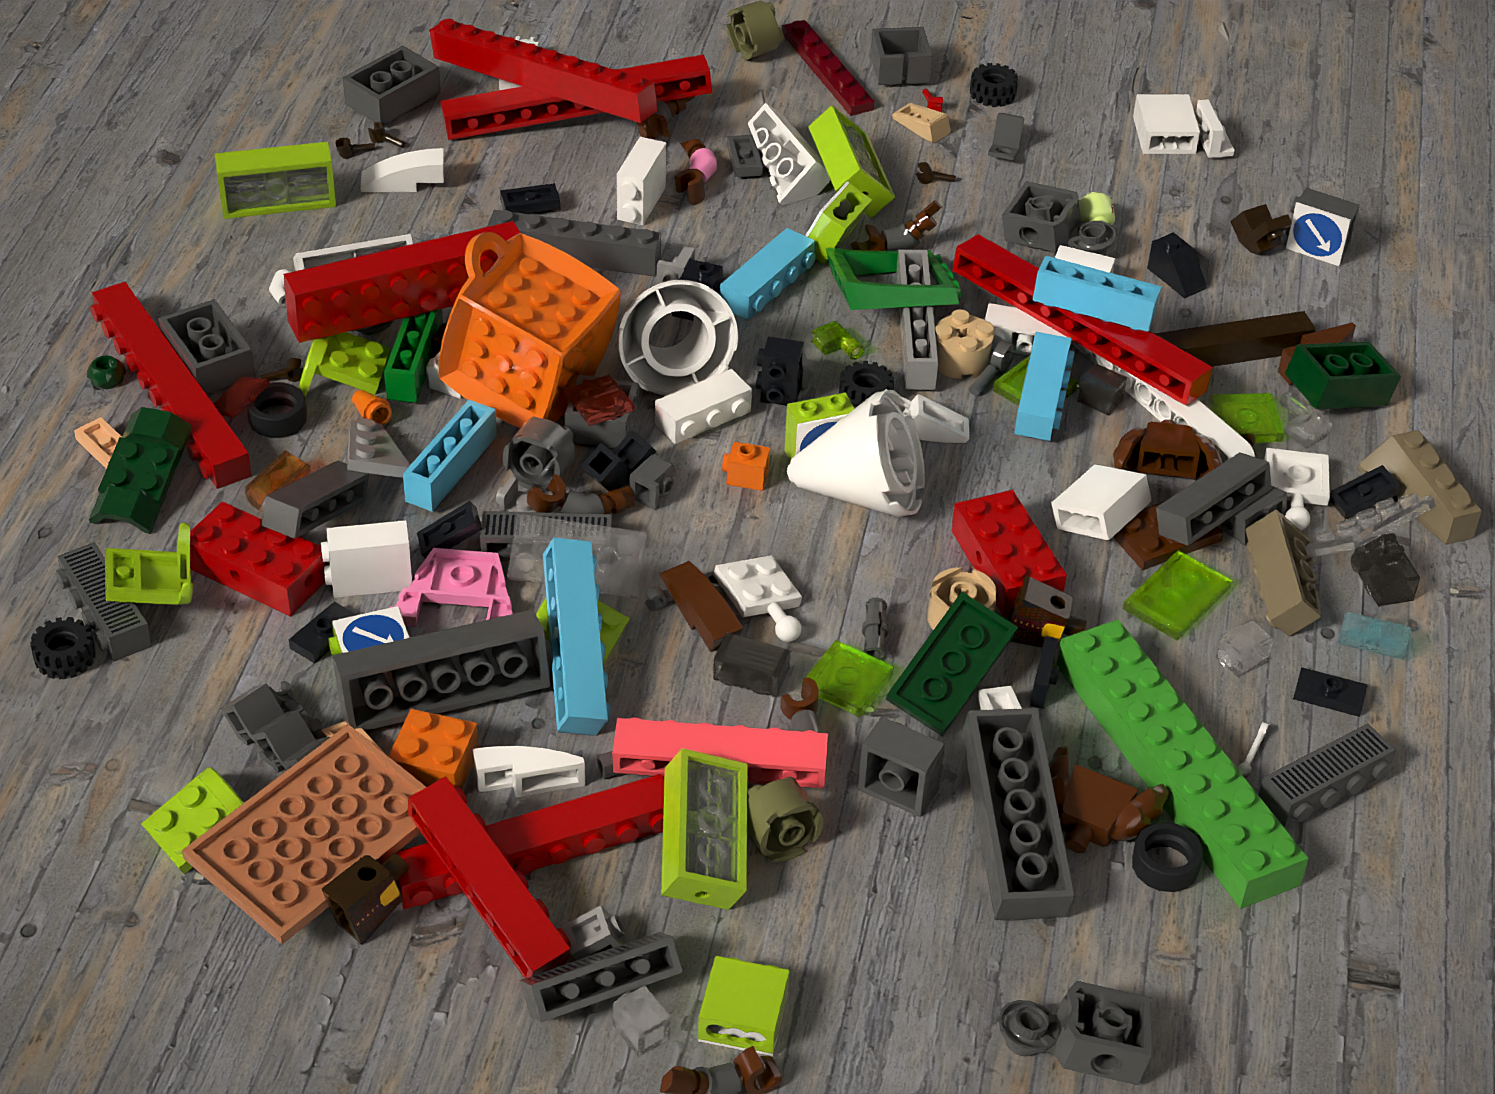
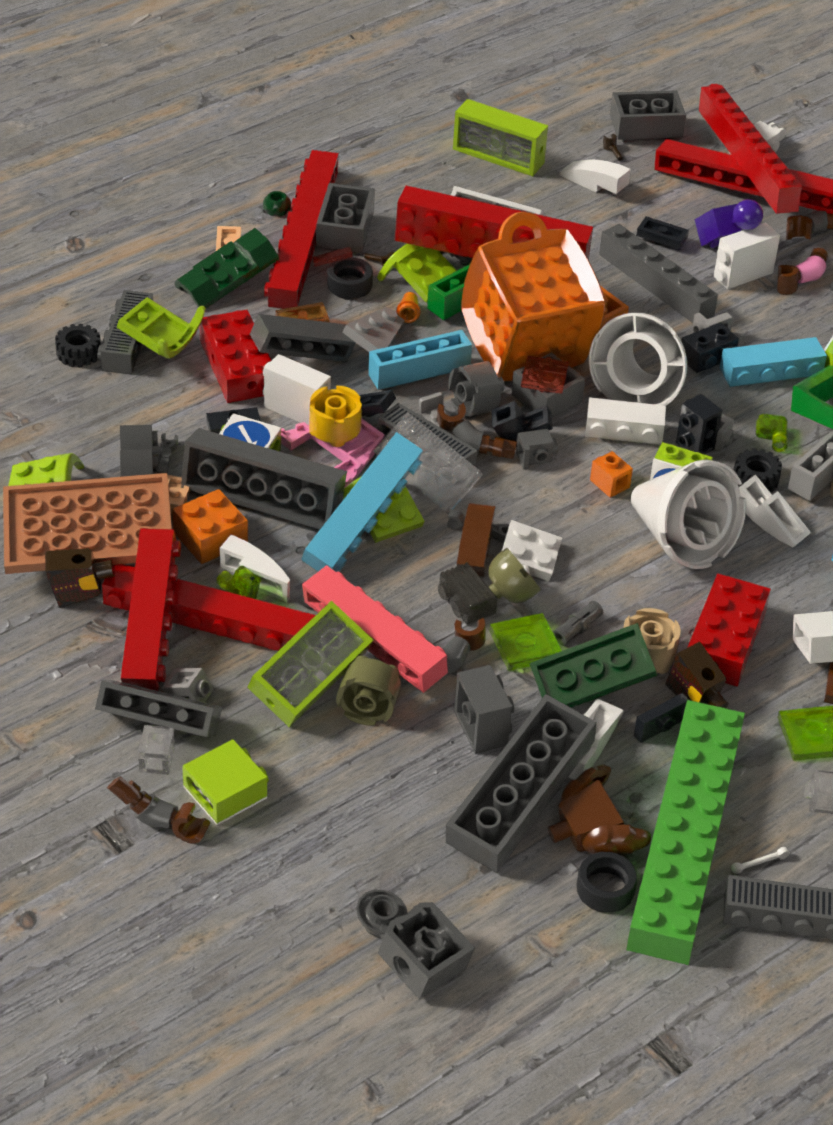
camera: 40 degrees right, 0 degrees up
(347, 150) = (577, 143): dark brown hand -> none
(443, 560) = (335, 415): none -> yellow brick
(536, 795) = (242, 582): none -> clear neon green piece
(598, 152) = (727, 221): none -> dark purple brick
(788, 621) = (511, 579): none -> olive cylinder

